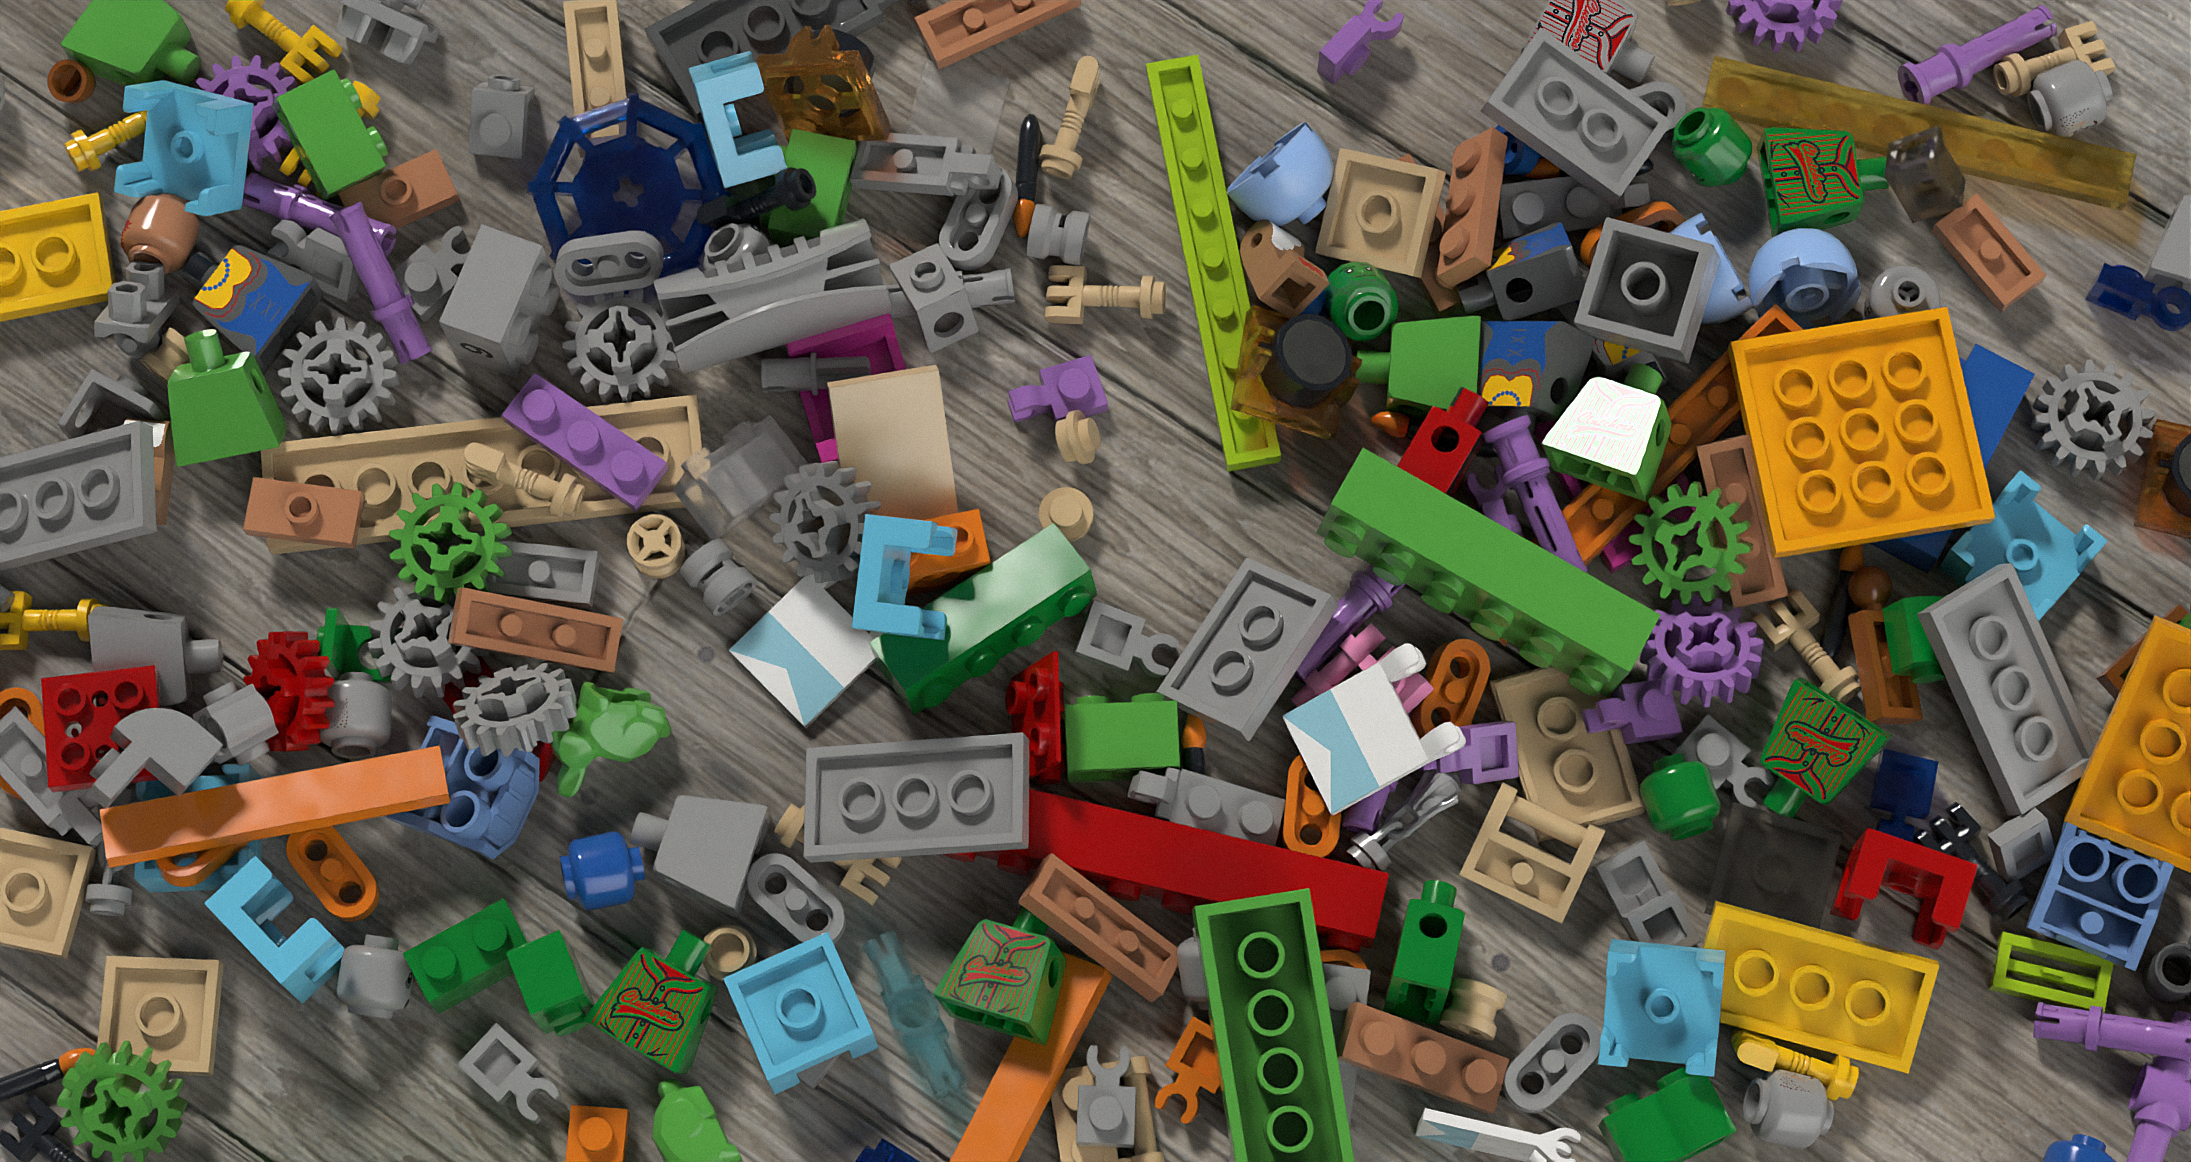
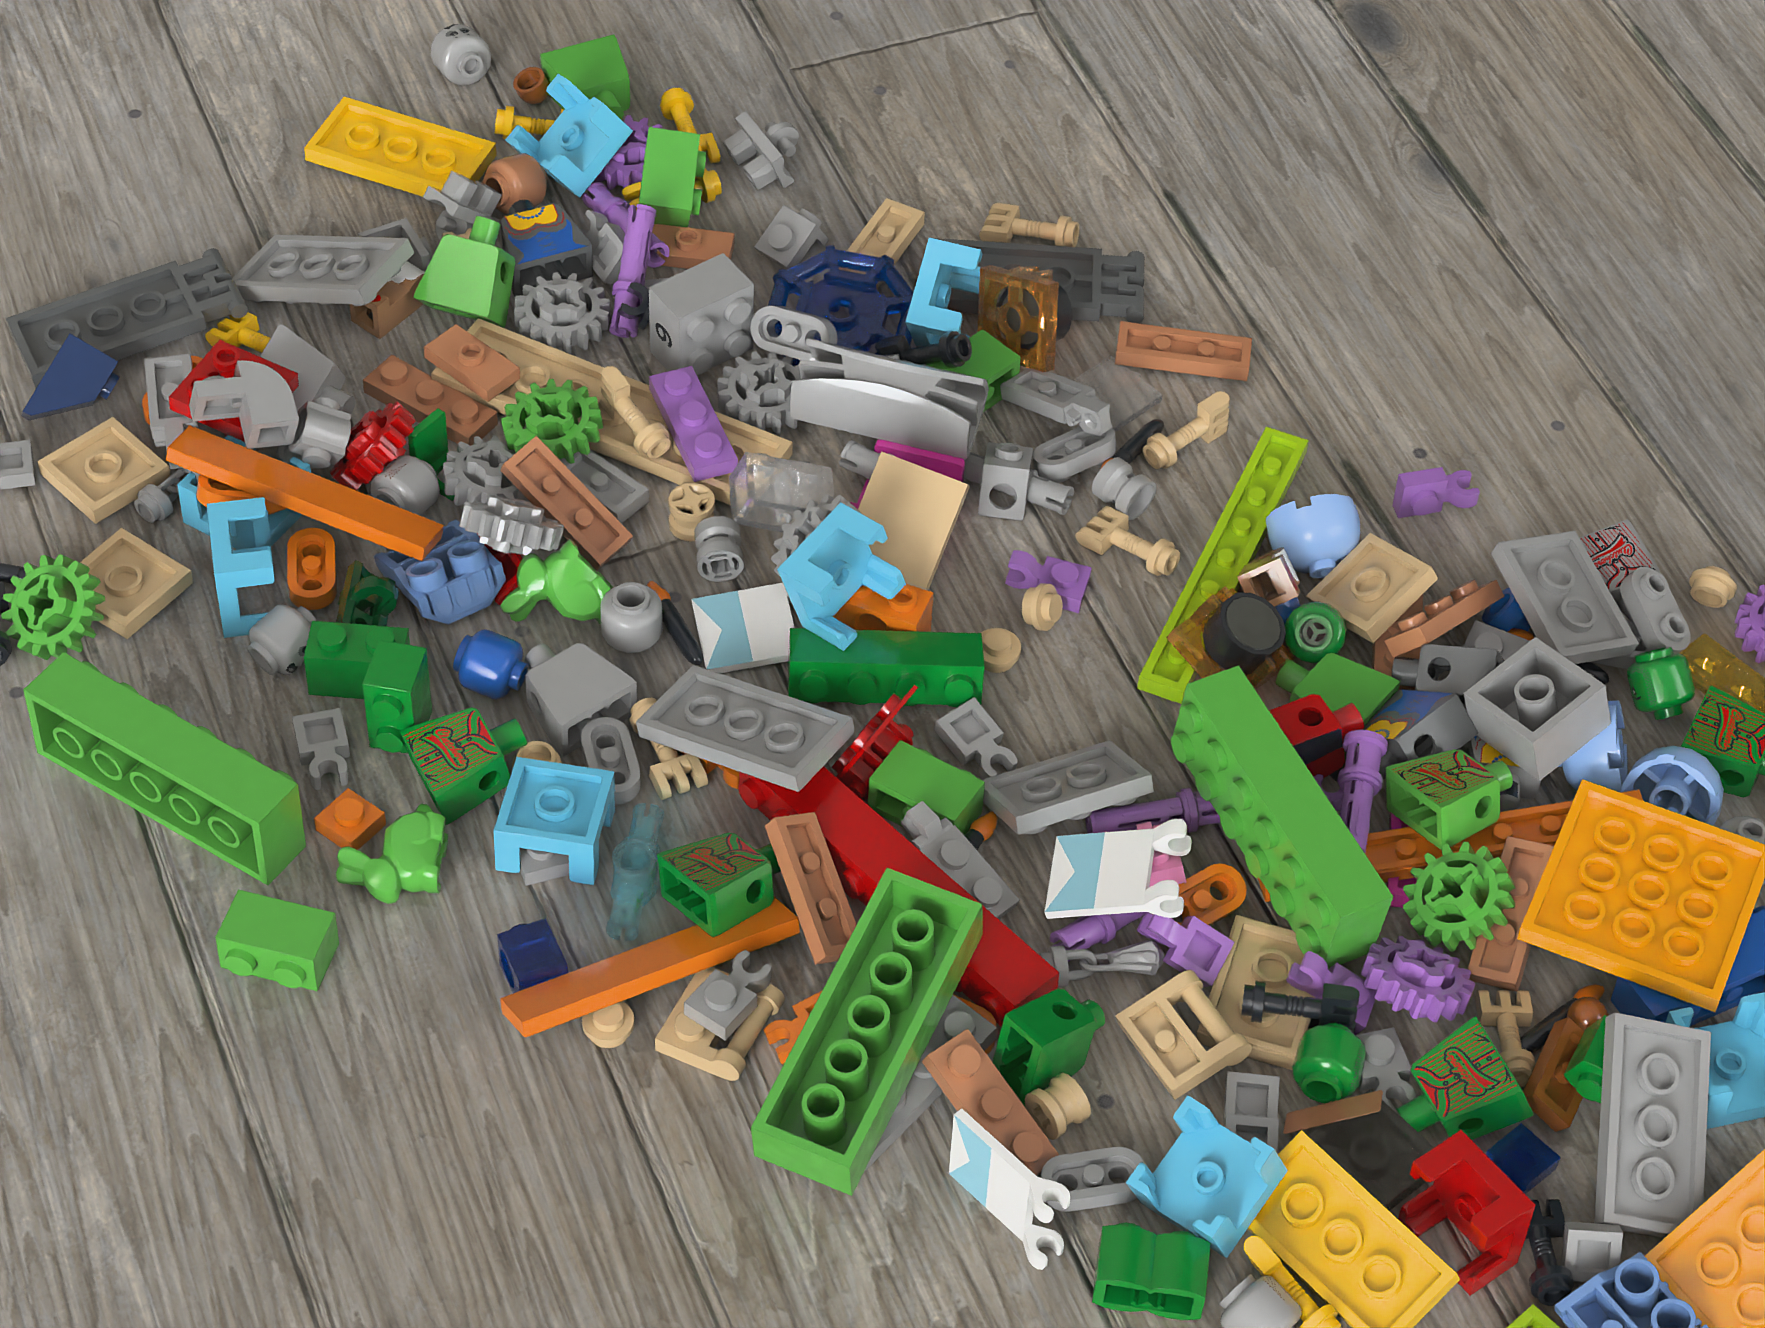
camera: 30 degrees right, 25 degrees down
(285, 577) = (421, 395): none -> nougat plate
(414, 873) = (364, 593): none -> dark green hips
(428, 317) = (642, 310): none -> black plate
(699, 725) = (631, 617): none -> light grey head
(701, 673) = (677, 627): none -> black piece
(1305, 810) = (1027, 915): orange plate -> none
(1651, 744) = (1336, 1006): none -> black hinge
(1662, 69) = (1654, 610): none -> light grey plate
(1717, 850) = (1333, 1112): none -> nougat sticker

